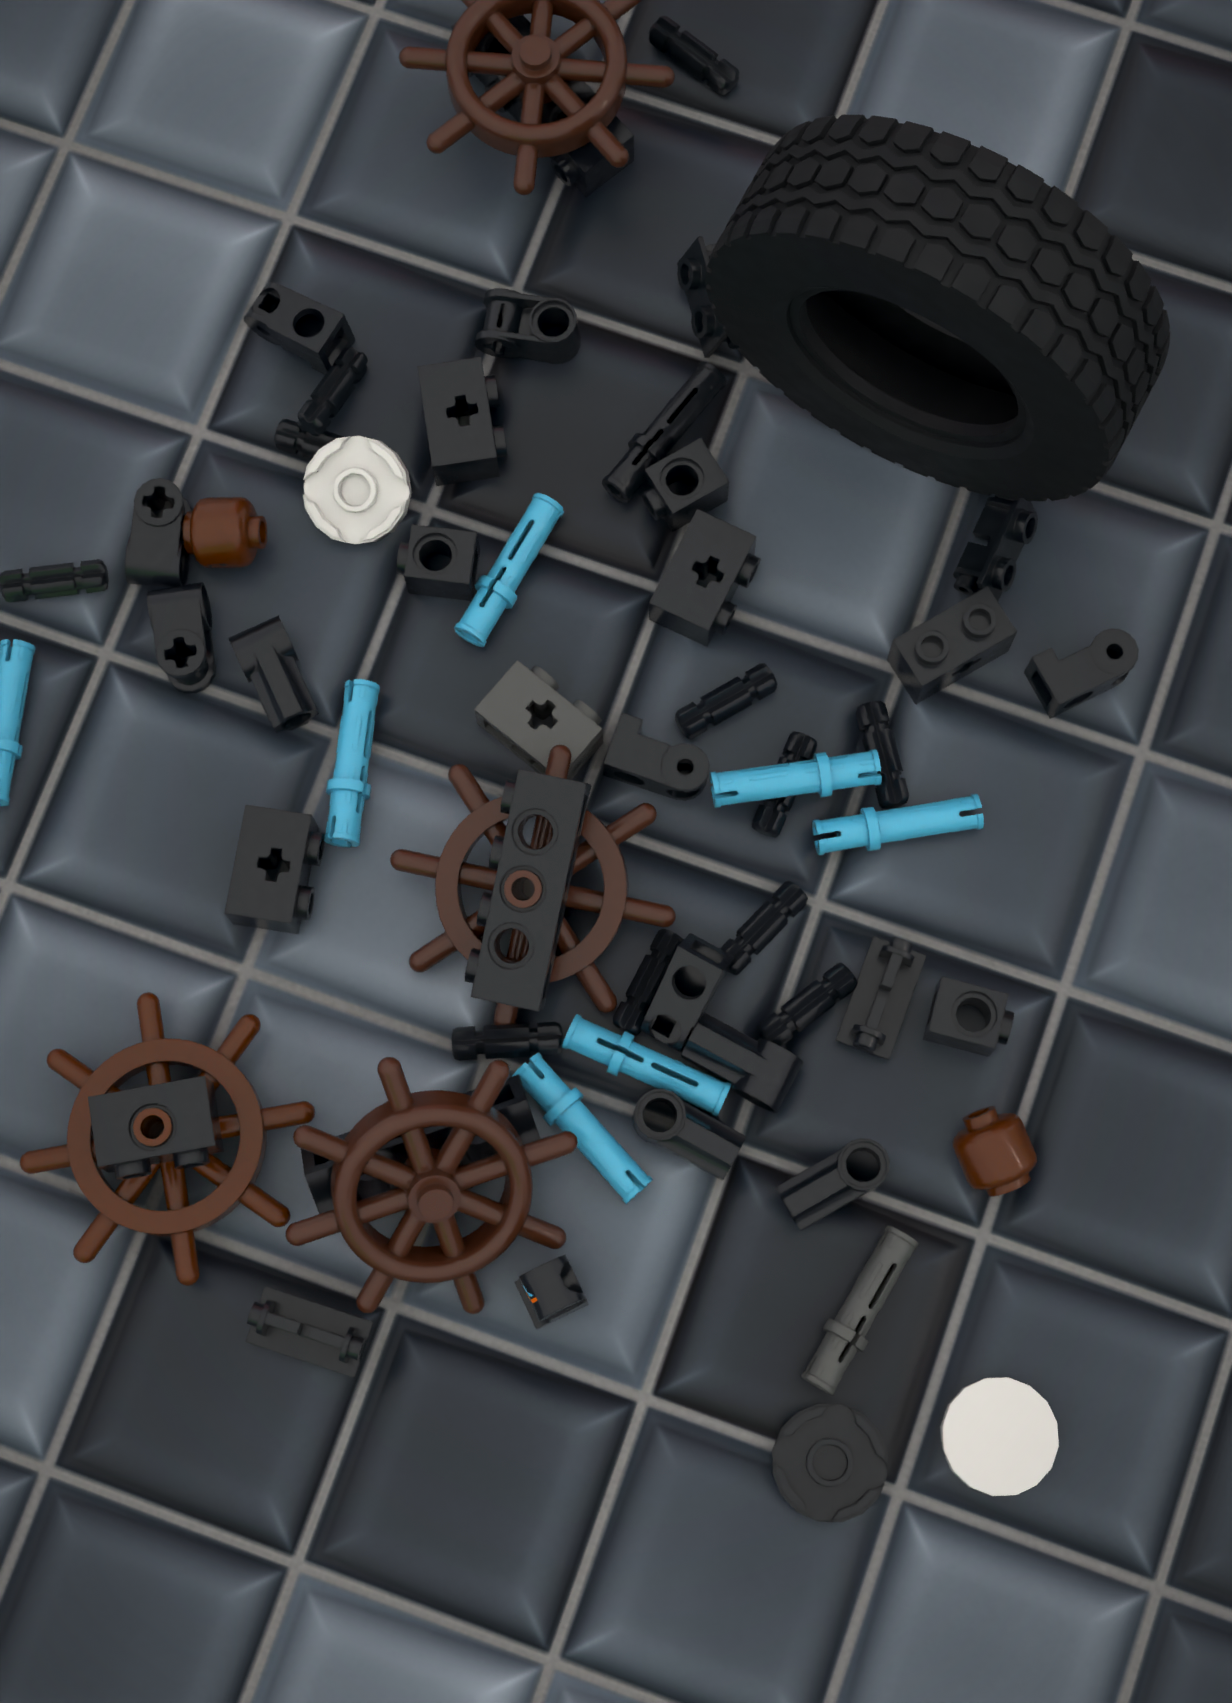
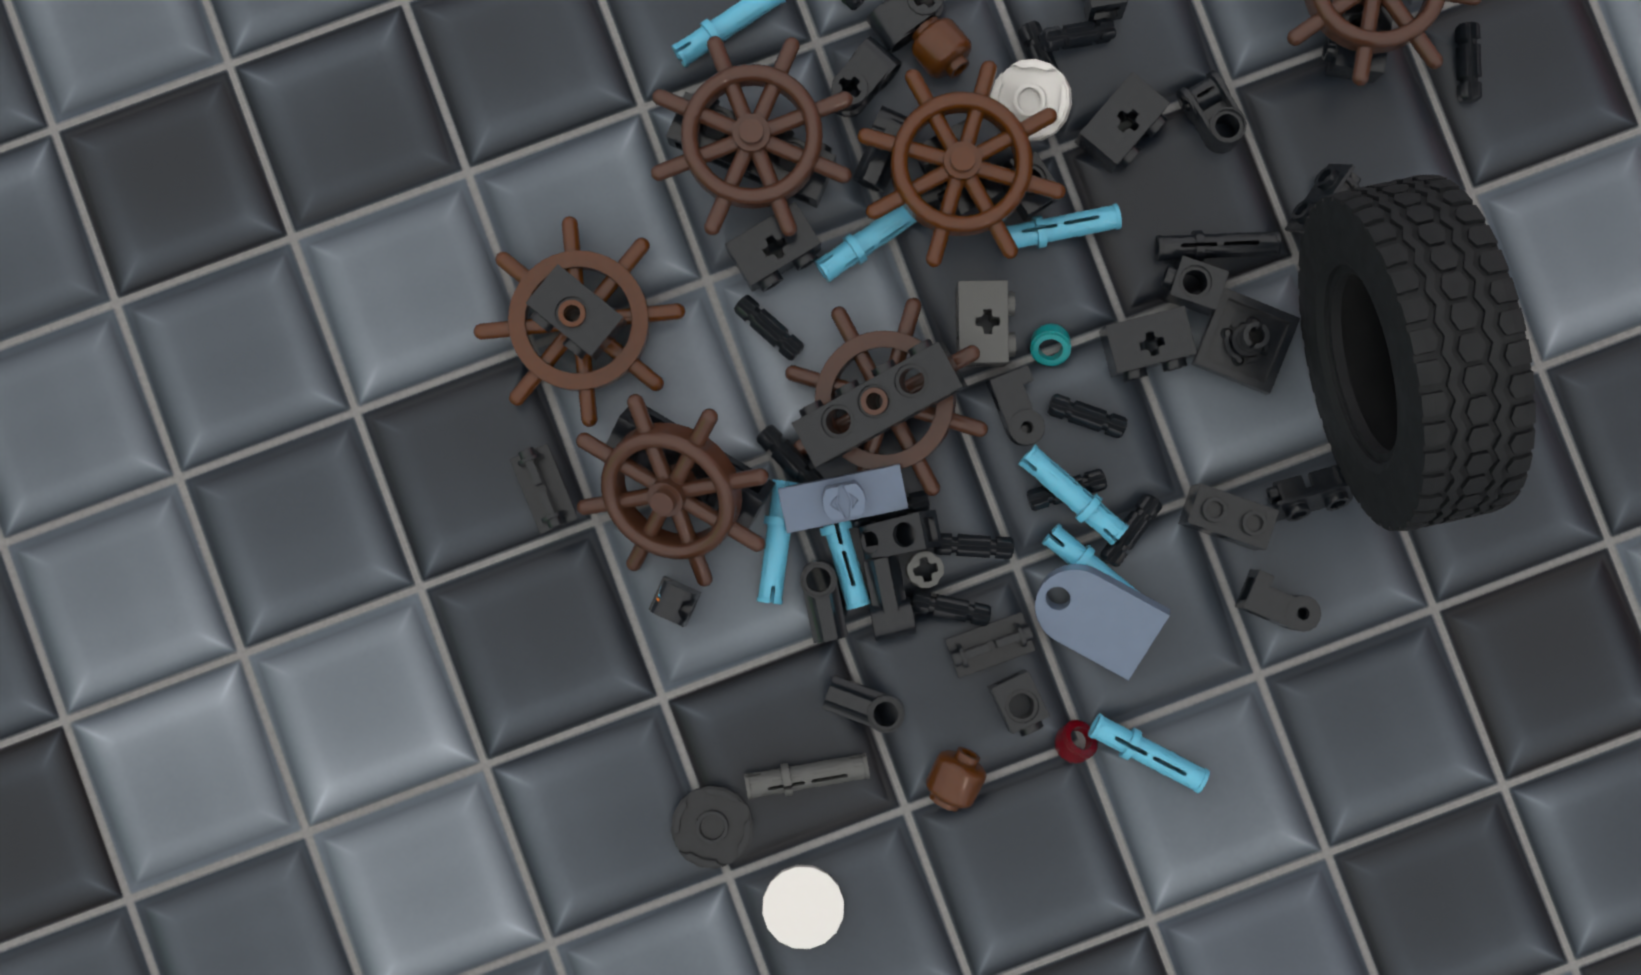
camera: 45 degrees right, 10 degrees up
(143, 793) = (751, 142): none -> reddish brown brick
(350, 946) = (768, 327): none -> black axle
(355, 610) = (961, 164): none -> reddish brown brick
(595, 1016) = (843, 498): none -> sand blue piece
(606, 667) = (1047, 332): none -> teal piece
(736, 982) = (914, 562): none -> dark grey bush
(793, 452) = (1268, 330): none -> black plate
(949, 858) = (1101, 618): none -> sand blue tile
(1058, 1009) = (1067, 749): none -> dark red piece
(1073, 952) = (1190, 773): none -> medium azure pin

